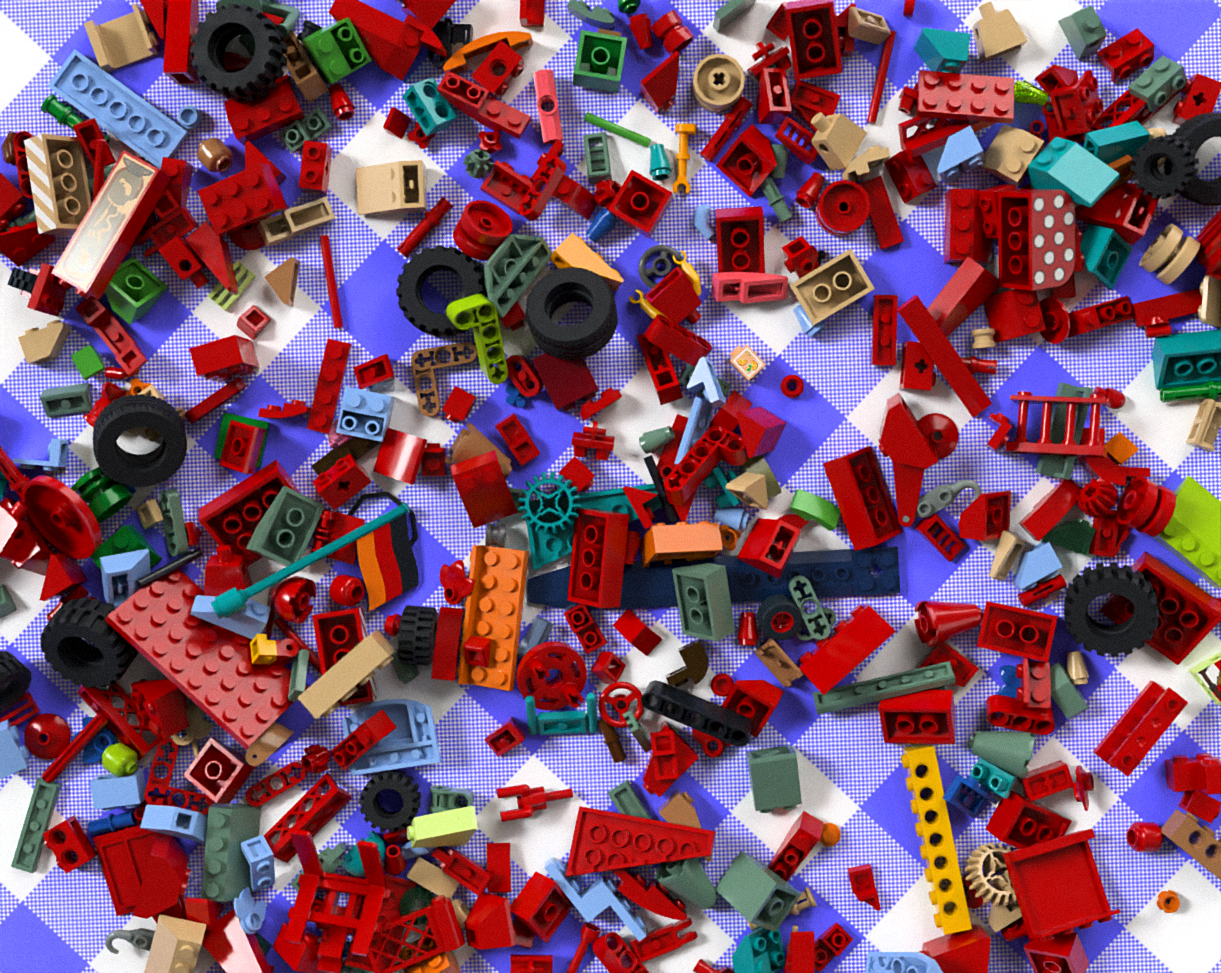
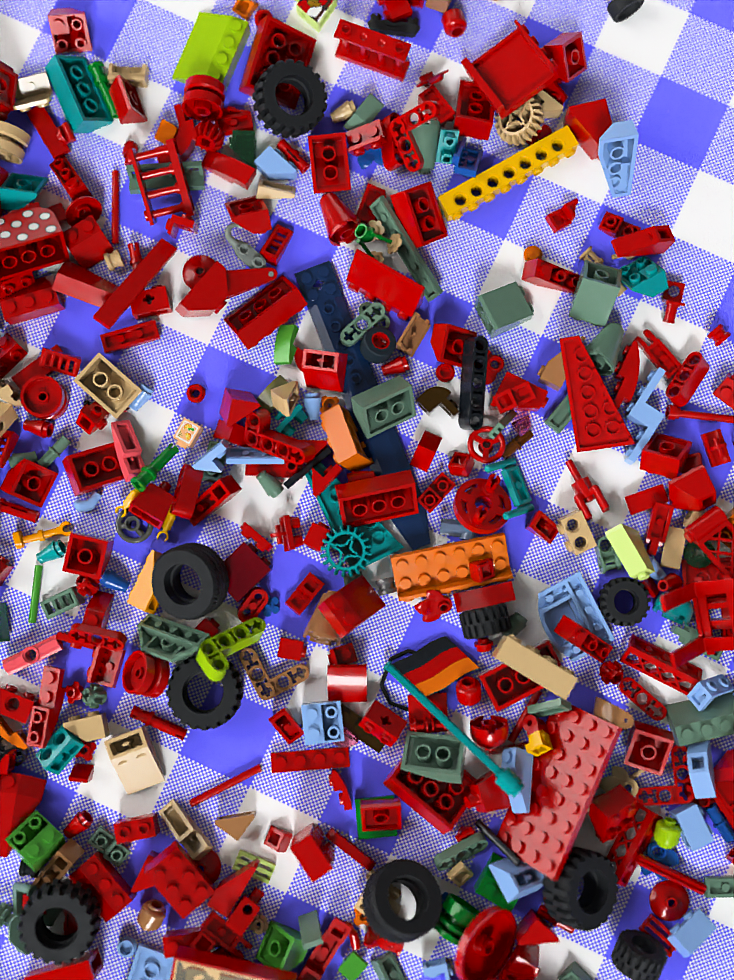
camera: 105 degrees left, 5 degrees down
(141, 328) = (310, 930): none -> sand green tile
(162, 276) = (264, 924): none -> tan plate
(444, 146) = (90, 727): none -> tan slope
(488, 779) = (580, 529): none -> tan brick
(630, 753) = (522, 425): none -> clear pink tile
(713, 304) = (149, 473): none -> green pin
(868, 241) = (77, 361): none -> red slope
(916, 656) = (375, 231): none -> plant
(1028, 739) = (407, 127): none -> red beam
(1048, 359) = (115, 207): none -> red bar
(1154, 779) = (404, 29): none -> black piece
(1173, 412) = (127, 101): none -> red slope

